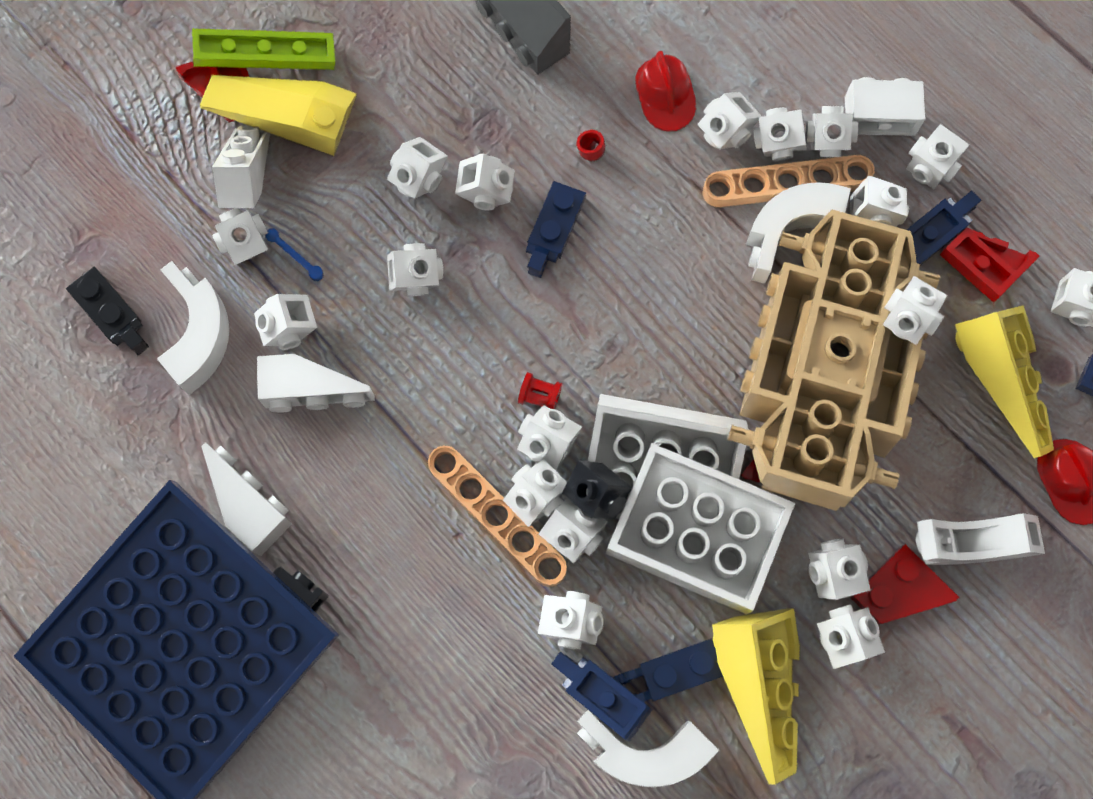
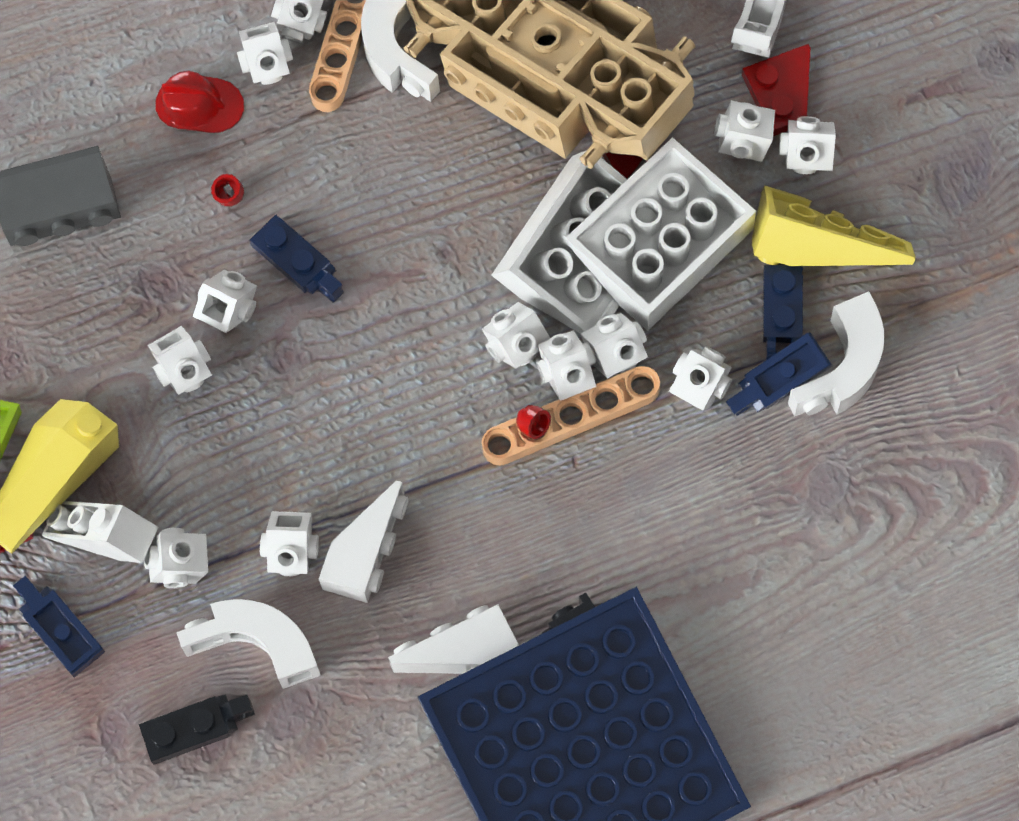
camera: 65 degrees left, 5 degrees down
(157, 170) = (58, 627): none -> dark blue hinge
(315, 272) = (242, 506): blue hinge -> none
(402, 272) = (289, 401): white brick -> none
(469, 483) = (533, 421): none -> red hinge
(530, 384) = (462, 343): red bush -> none
(597, 490) = (590, 303): black brick -> none

